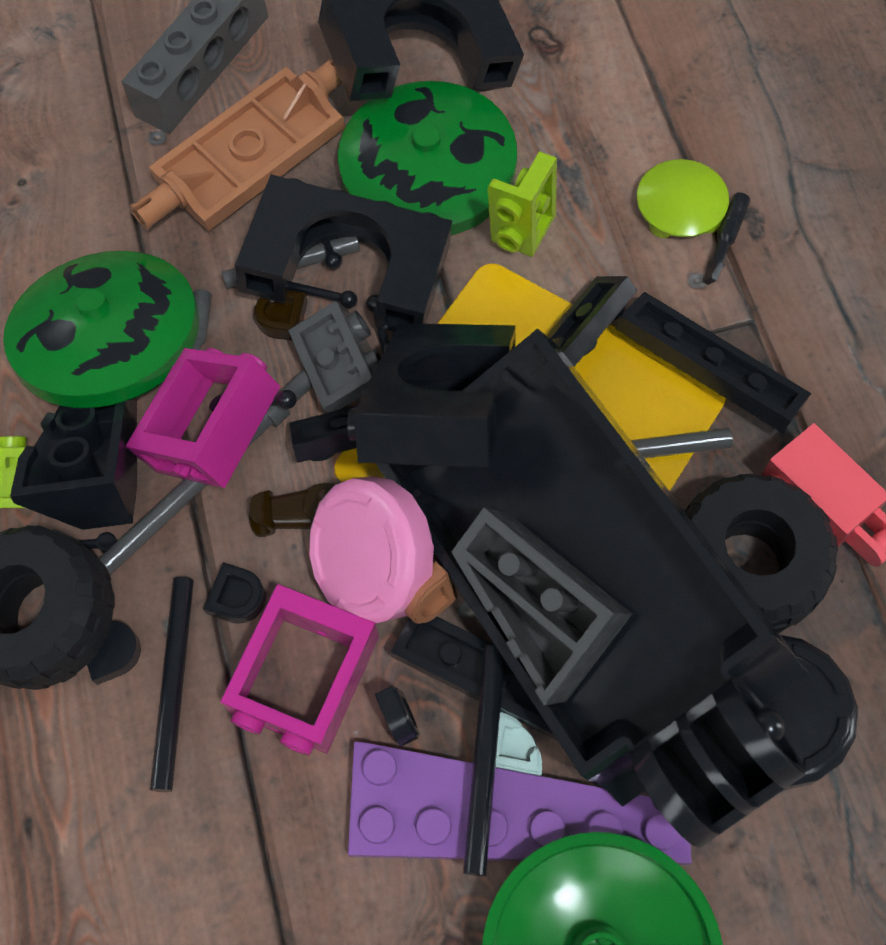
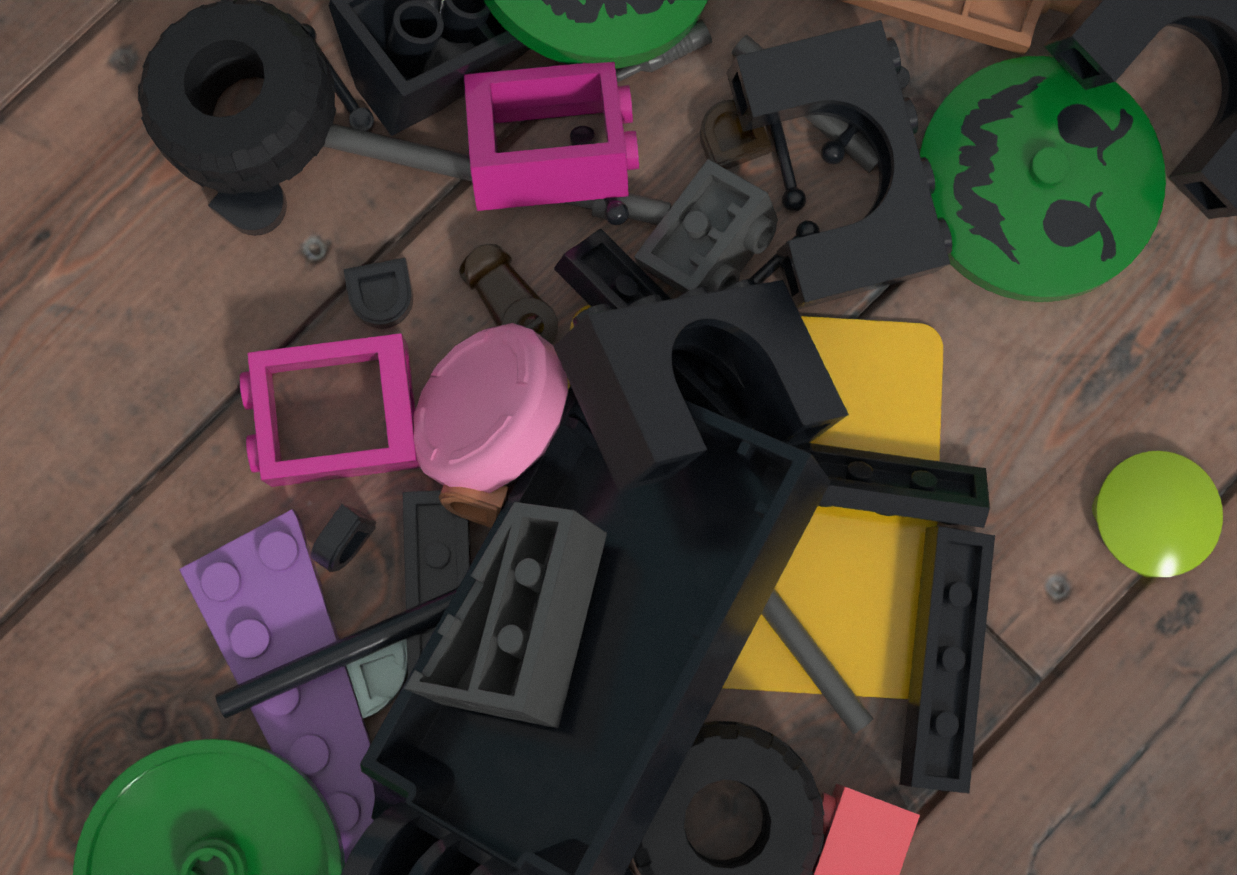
camera: 50 degrees right, 15 degrees up
(172, 685) = (253, 286): black bar -> none
(524, 211) = (1020, 348): lime bracket -> none
(727, 235) = (1138, 593): black piece -> none

